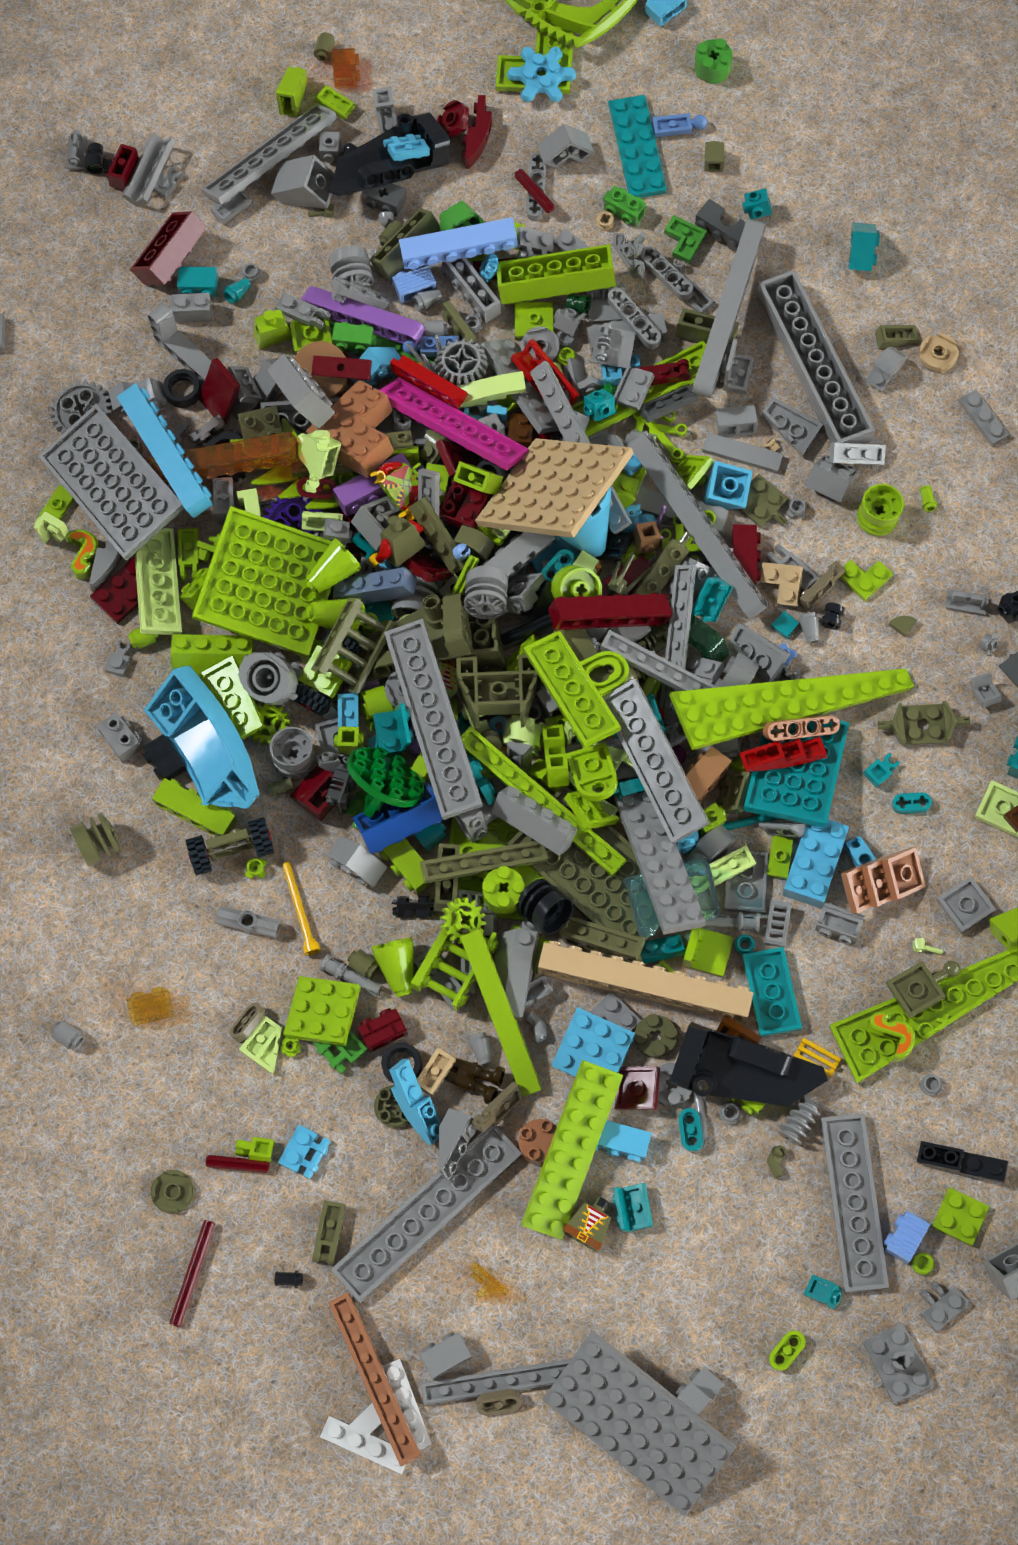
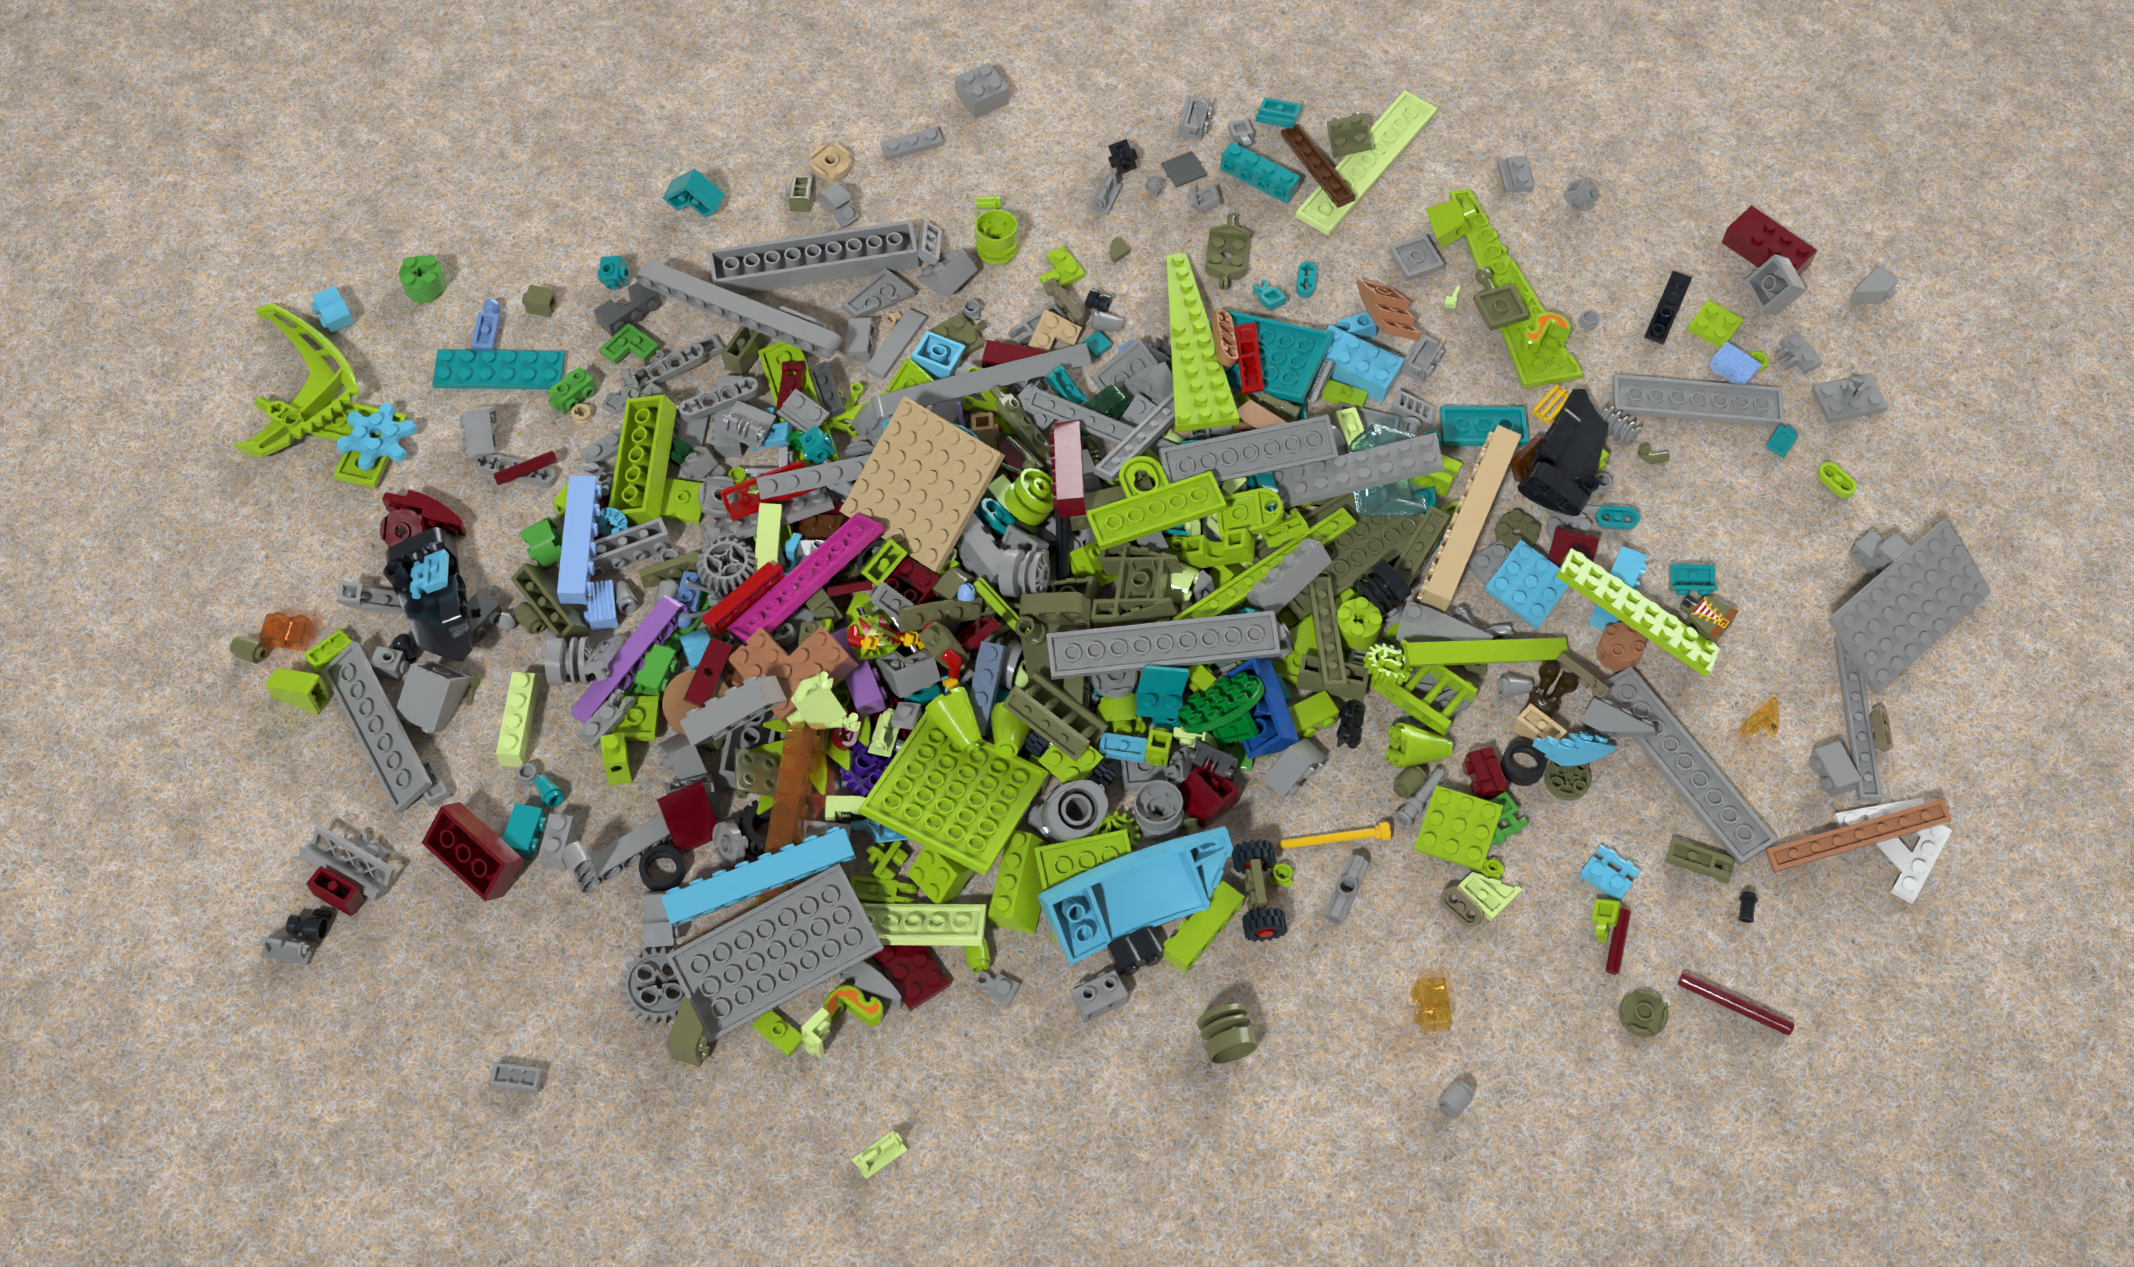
camera: 85 degrees left, 10 degrees down
(36, 436) = (687, 1037): none -> olive slope
(294, 250) = (517, 719): none -> yellowish green brick

